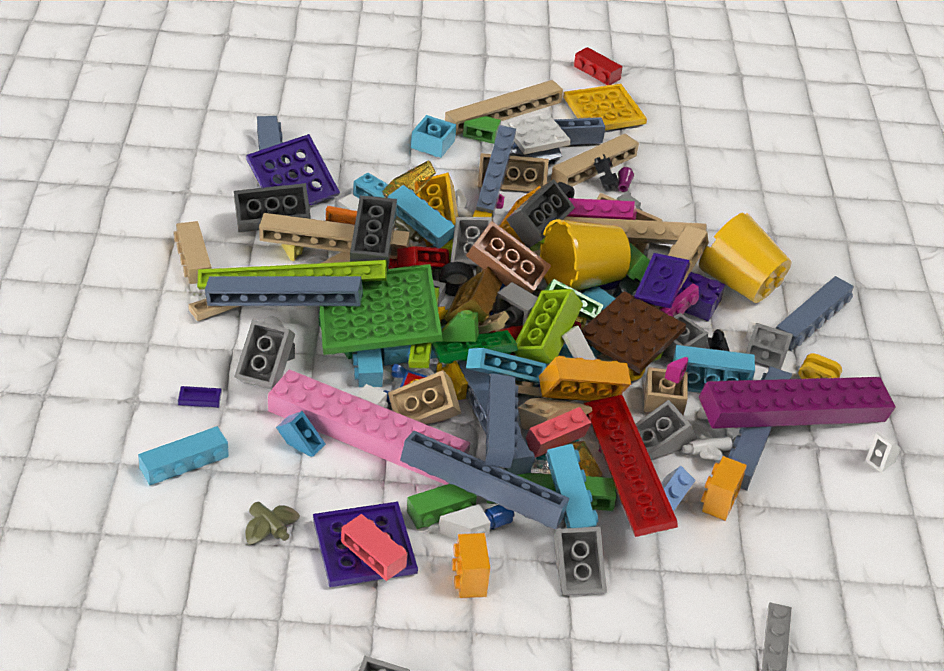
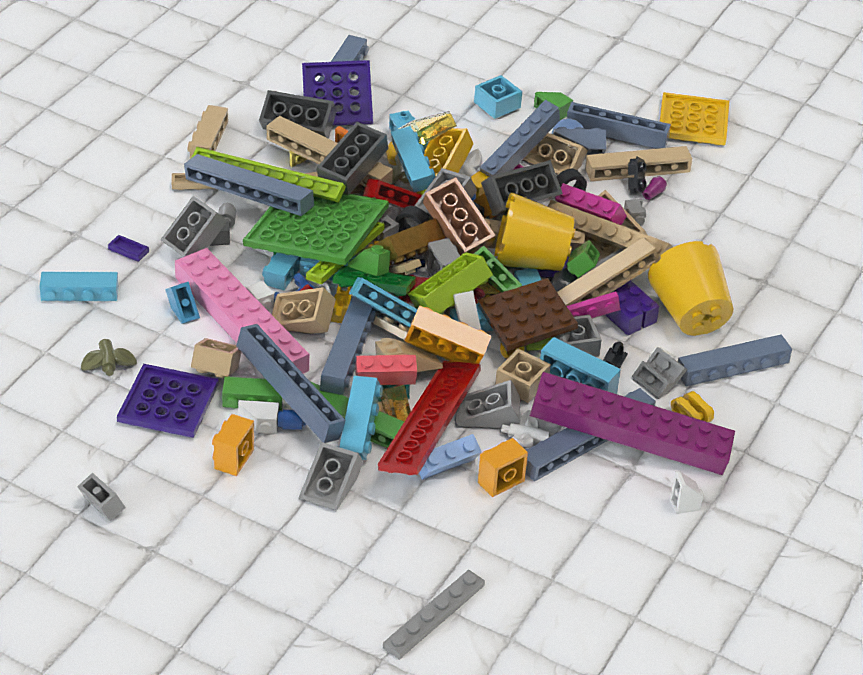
camera: 30 degrees right, 0 degrees up
(374, 547) = (167, 402): coral brick -> none
(385, 480) = (215, 357): none -> tan brick
(502, 421) = (337, 341): sand blue brick -> none
(508, 105) = (597, 89): tan brick -> none
(538, 133) = (589, 120): white plate -> none
(598, 66) = (721, 78): red brick -> none
(662, 280) = (584, 278): dark purple plate -> none
(676, 370) = (536, 357): dark pink slope -> none

